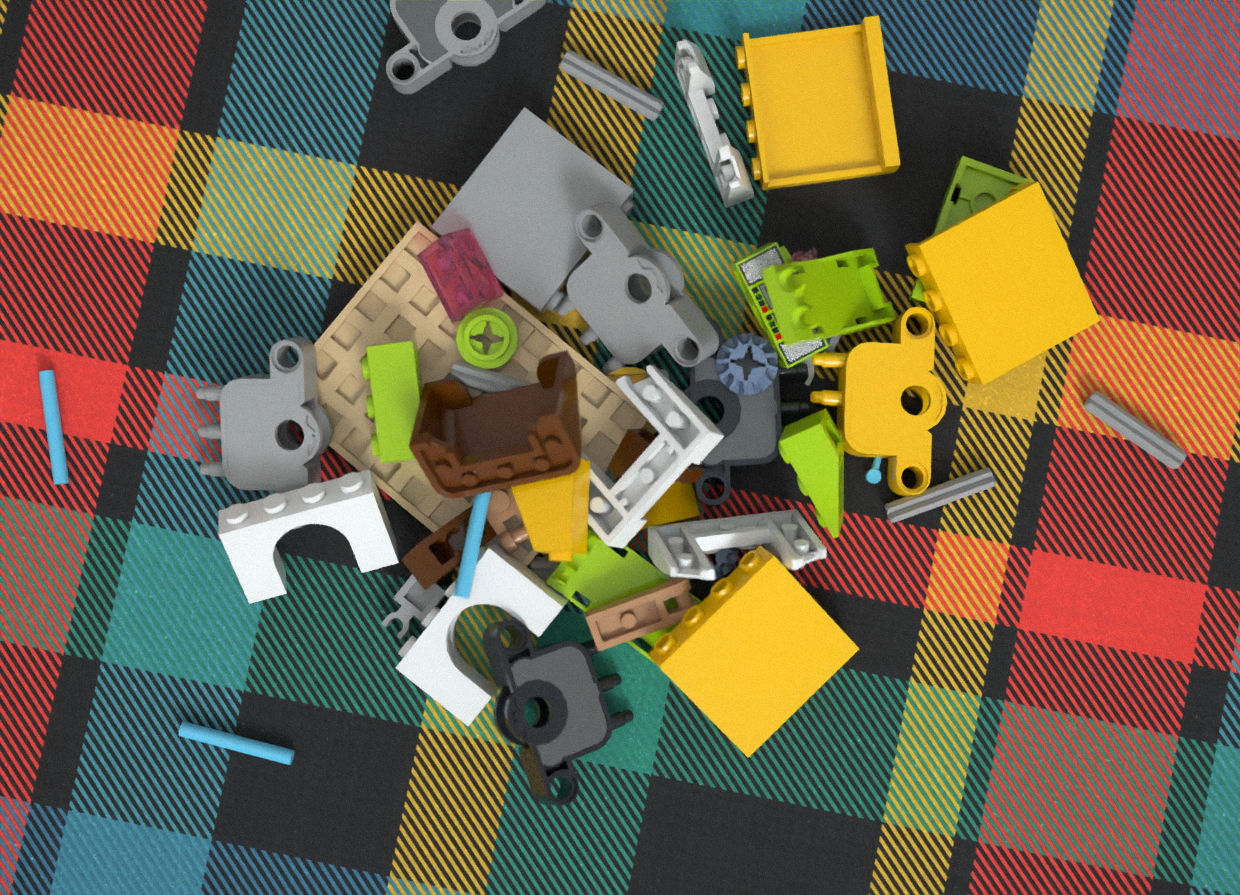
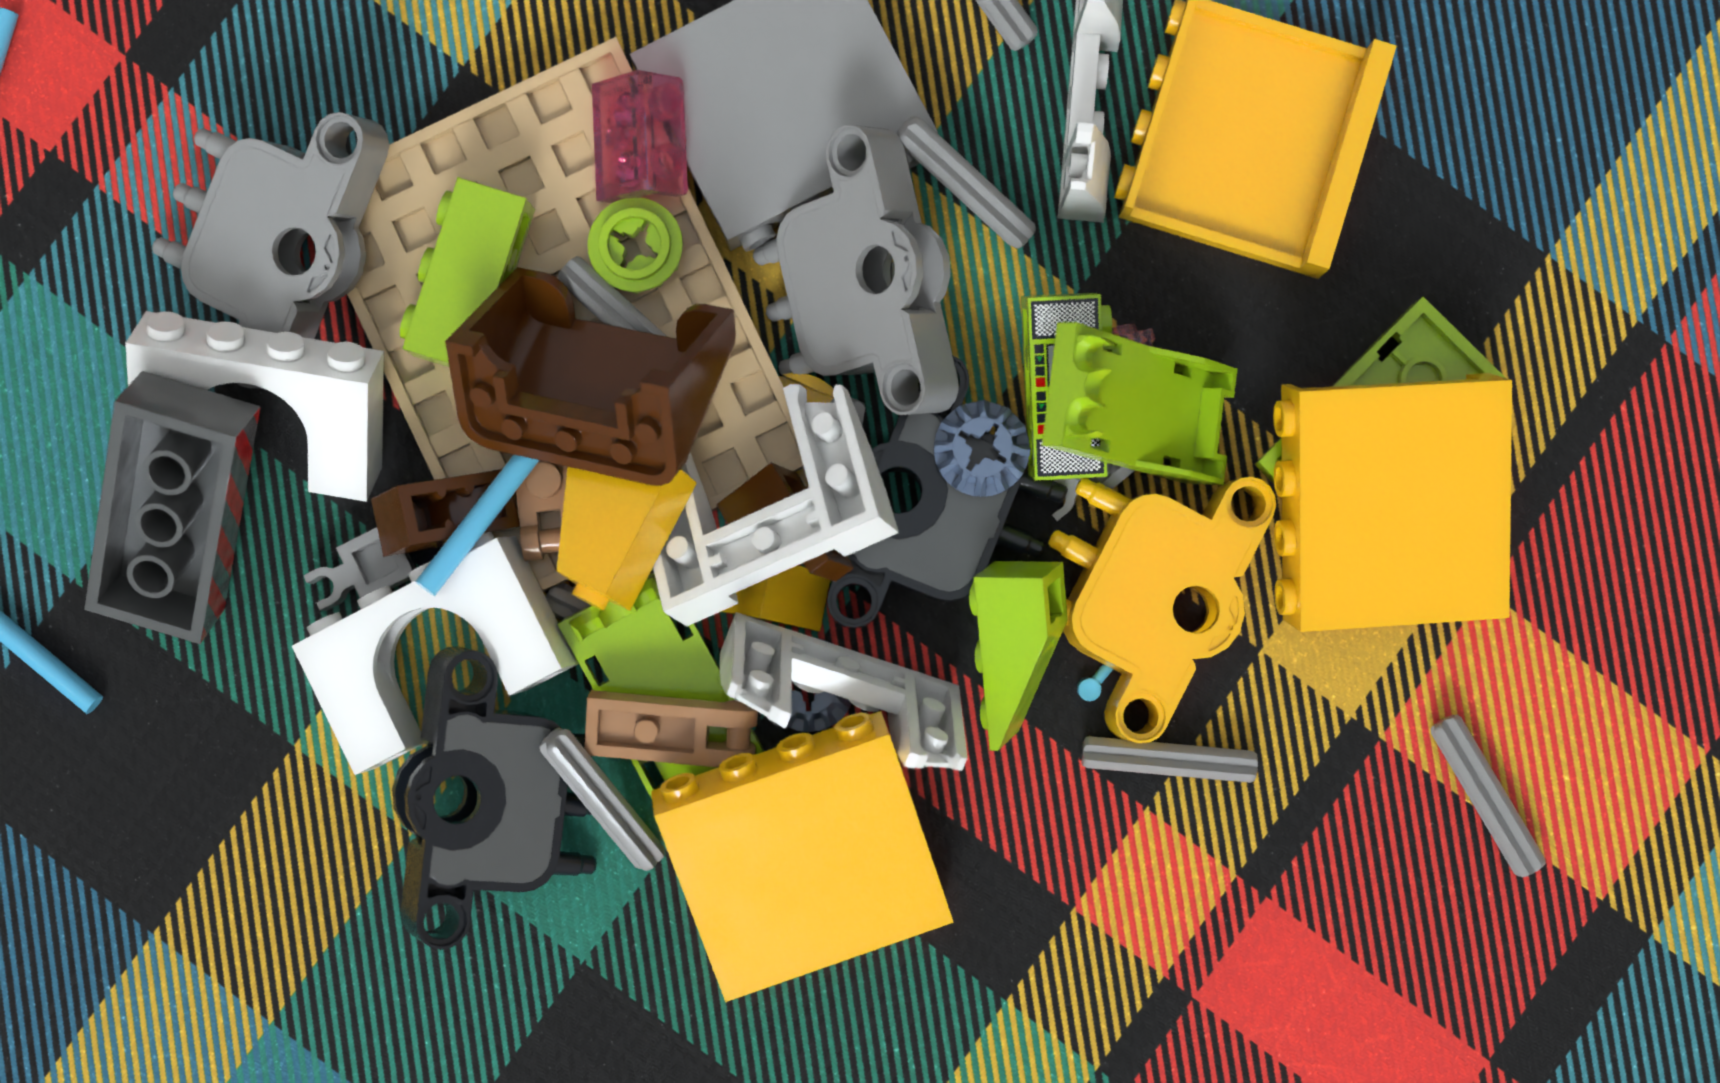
camera: 20 degrees right, 0 degrees up
(288, 618) = (170, 506): none -> dark grey brick
(620, 672) = (602, 799): none -> light grey axle
(663, 211) = (966, 182): none -> light grey axle

